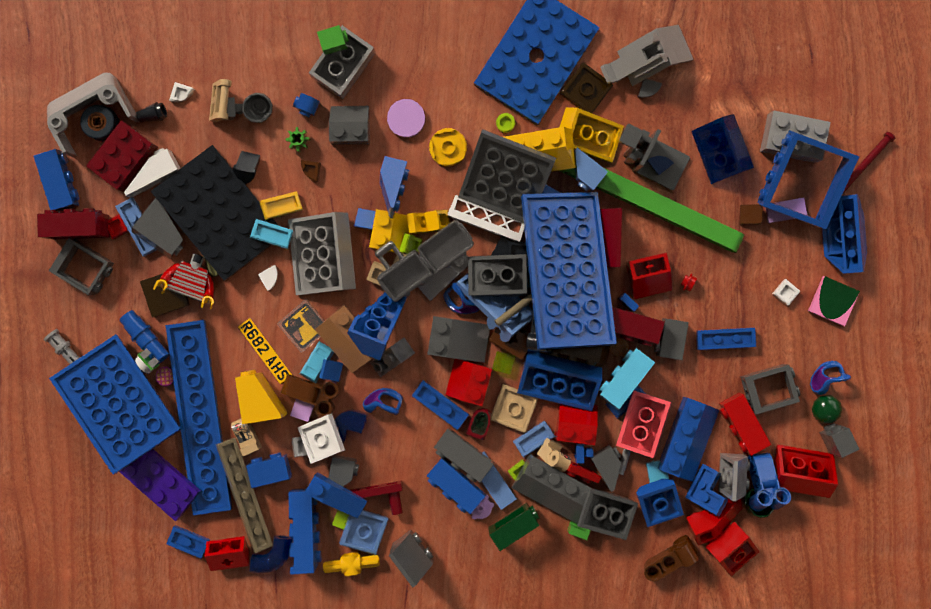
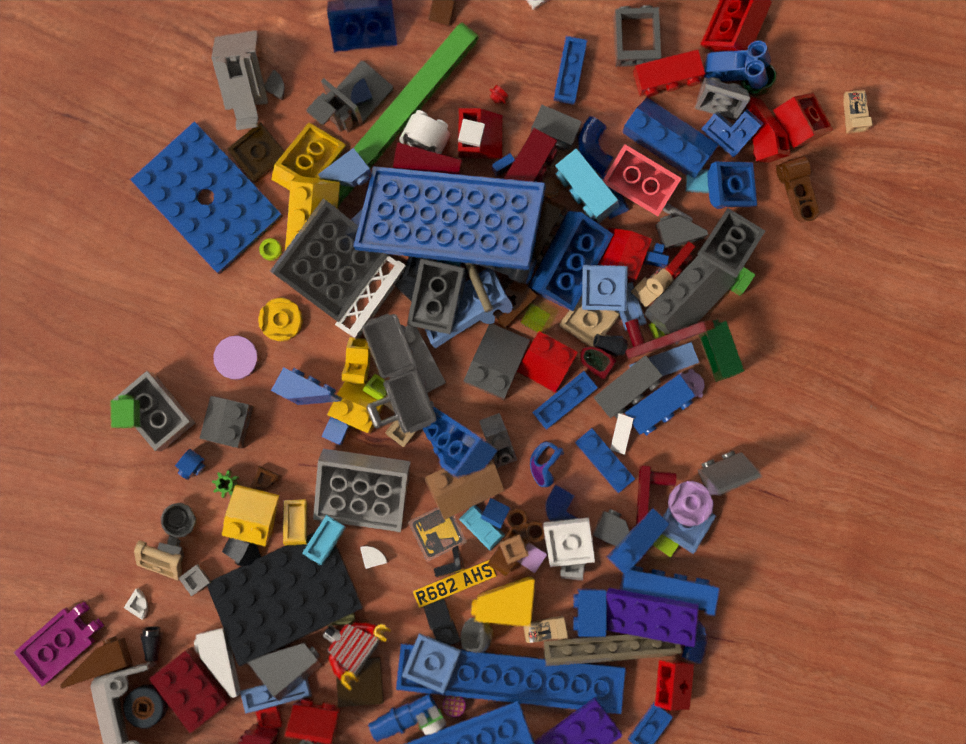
camera: 75 degrees left, 5 degrees down
(121, 264) = (313, 721): none -> red slope
(128, 79) = (102, 660): none -> reddish brown slope
(131, 35) = (57, 643): none -> magenta tile
(194, 349) = (431, 663): none -> medium blue tile
(212, 135) = (194, 580): none -> light grey plate
(224, 380) = (476, 636): none -> dark grey hair
(229, 348) = (441, 622): none -> black slope
(276, 167) = (250, 515): none -> yellow slope
(276, 345) = (451, 568): none -> black tile
(277, 522) = (651, 617): none -> dark purple plate
(304, 394) = (514, 549): none -> medium nougat tile
(351, 564) = (720, 546): yellow axle -> none
(380, 531) = (690, 503): none -> lavender tile
(398, 450) = (604, 460): none -> blue plate
(424, 459) = (621, 433): none -> white sticker
(467, 305) = (462, 340): blue piece -> none
(497, 432) = (611, 344): none -> black cone
(500, 458) = (640, 347): none -> dark red piece
(543, 415) = (605, 287): none -> medium blue tile
(637, 229) = (425, 133): none -> white brick
(647, 269) = (471, 132): none -> white tile
(664, 371) = (590, 145): none -> clear blue cylinder
(751, 592) = (856, 111): none -> tan leg

